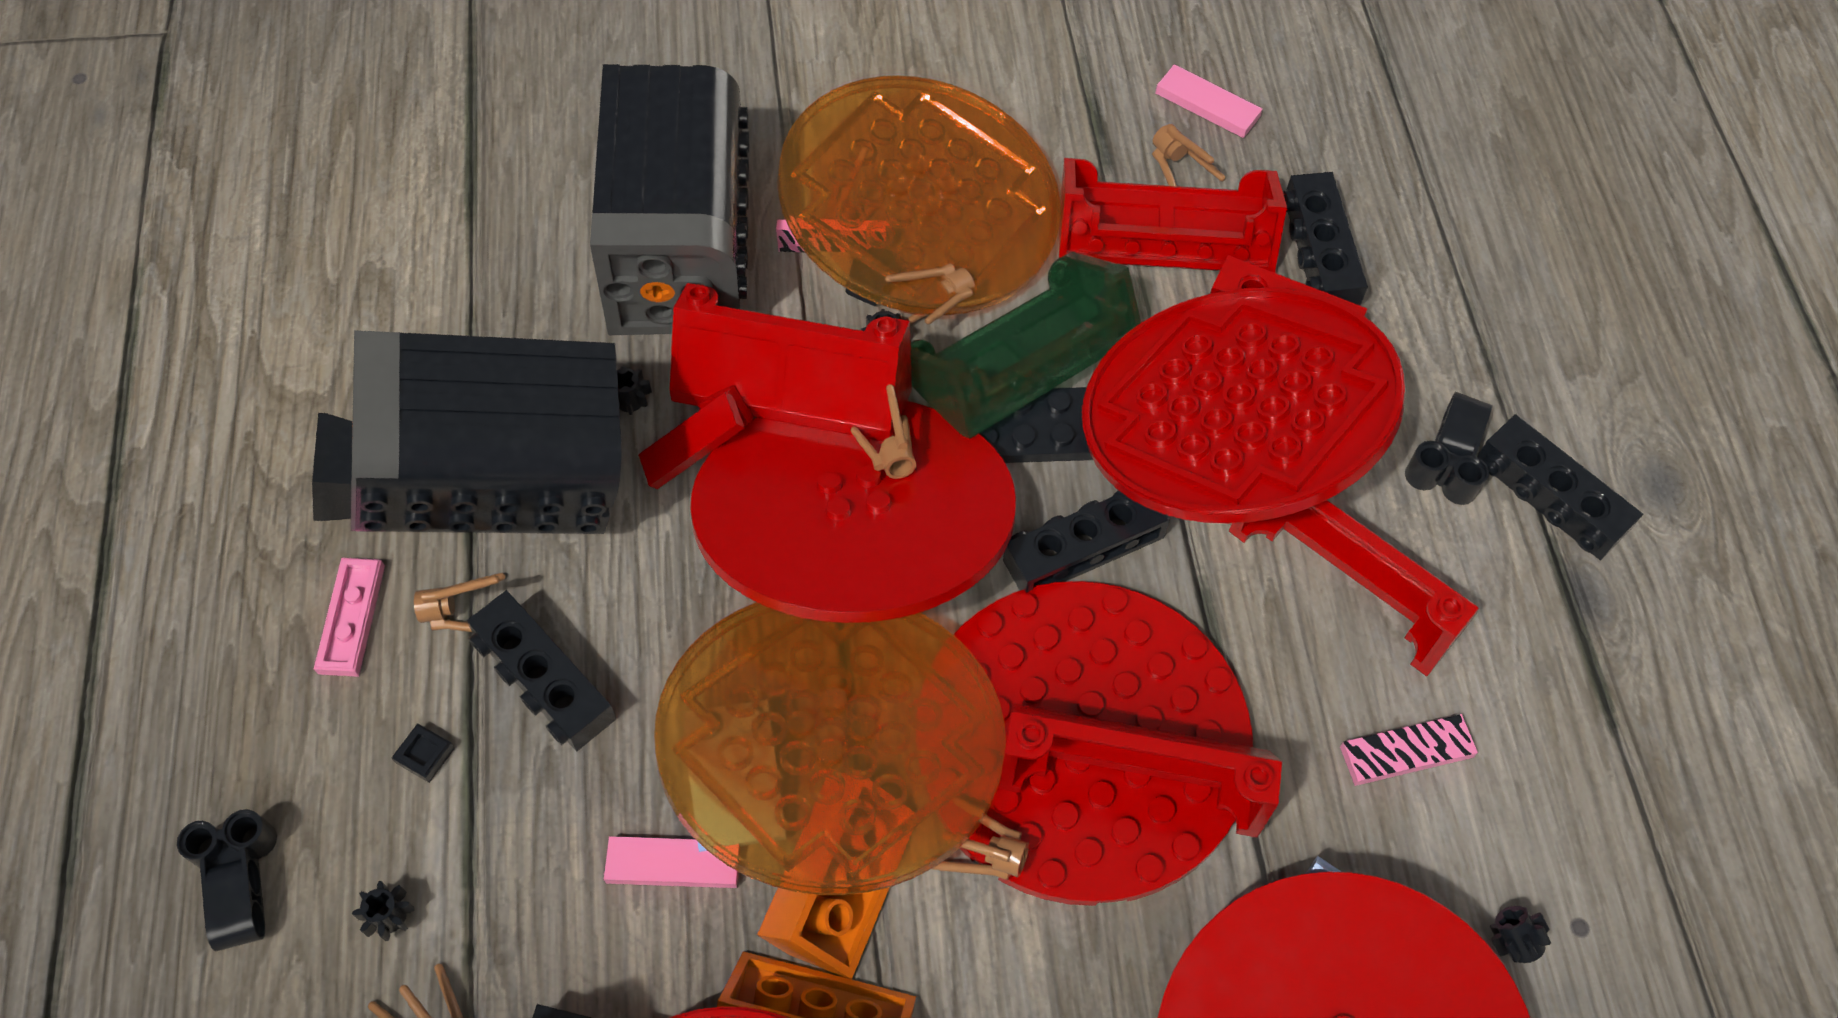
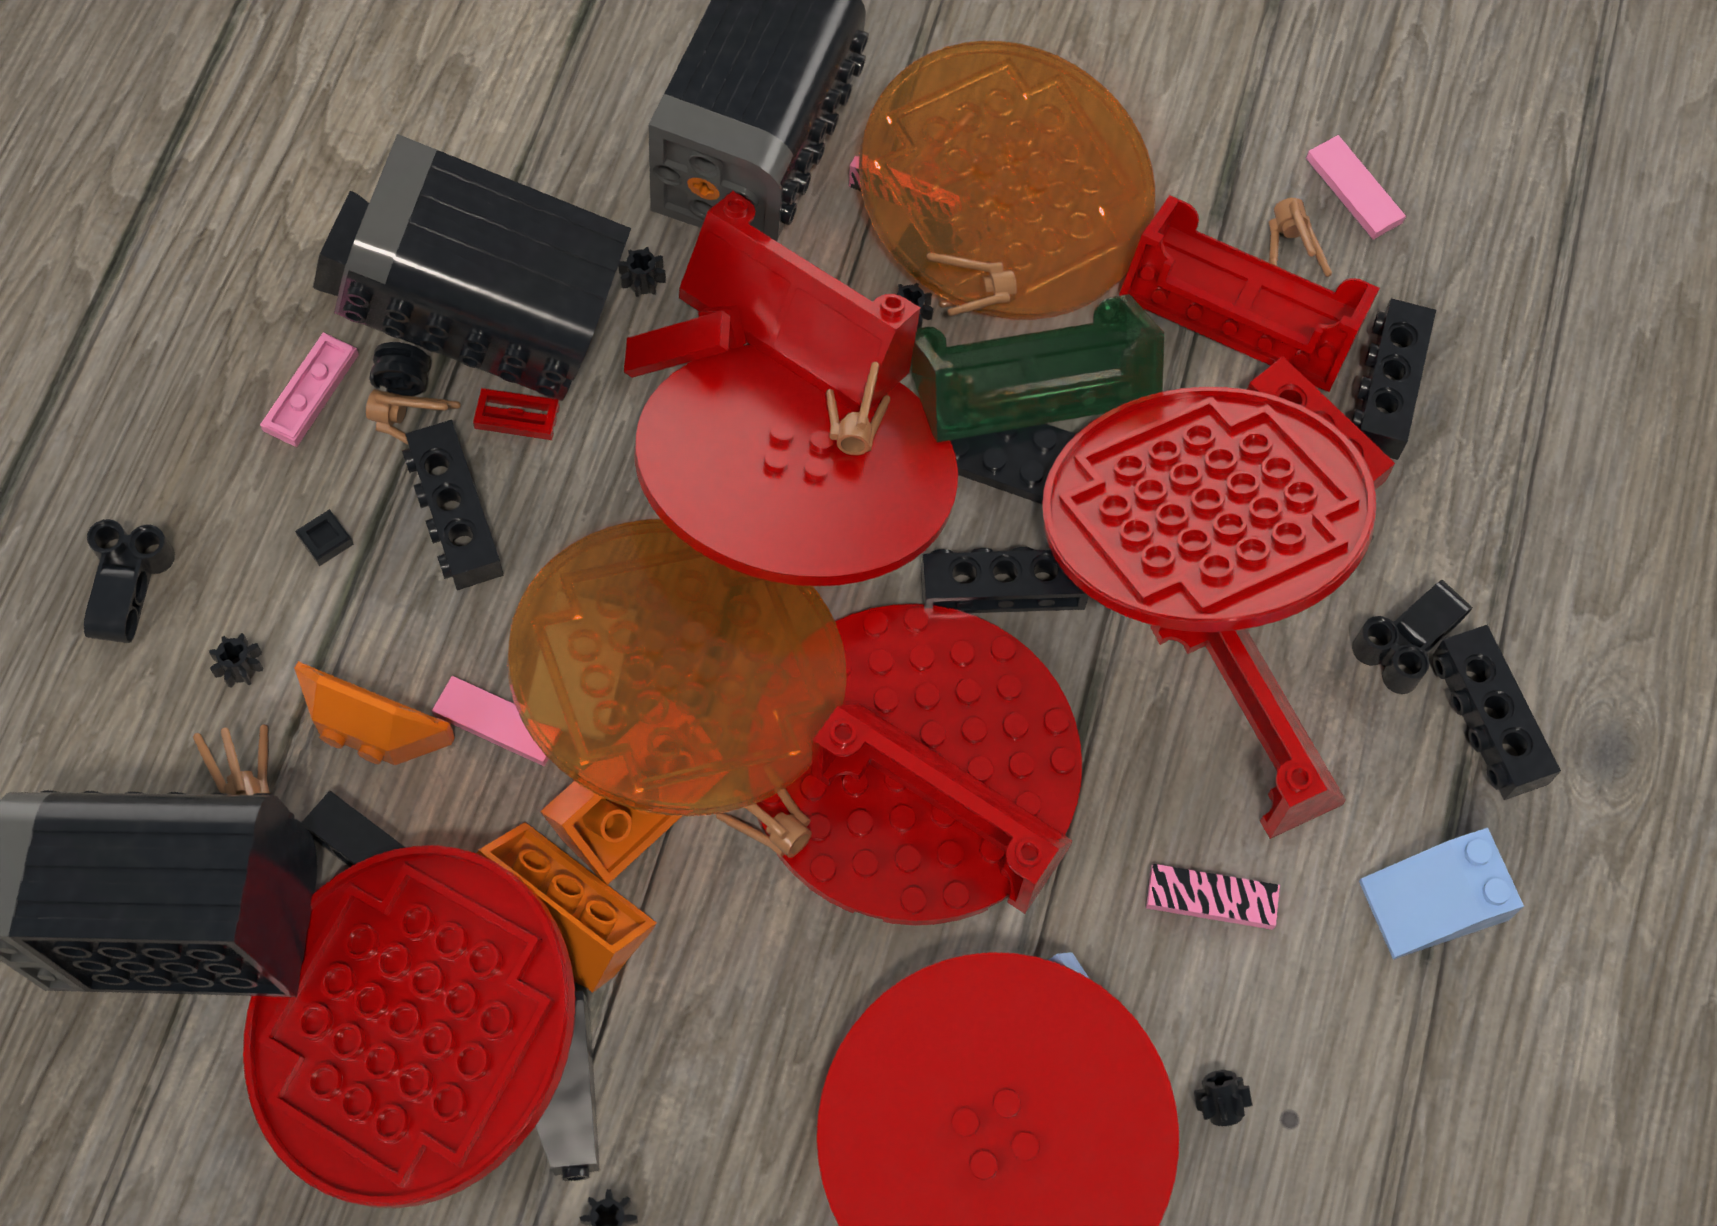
camera: 20 degrees right, 5 degrees up
(433, 562) = (399, 368): none -> black wheel
(544, 915) = (369, 721): none -> orange wedge
(563, 569) = (515, 420): none -> red tile
(1601, 663) = (1442, 894): none -> light blue slope

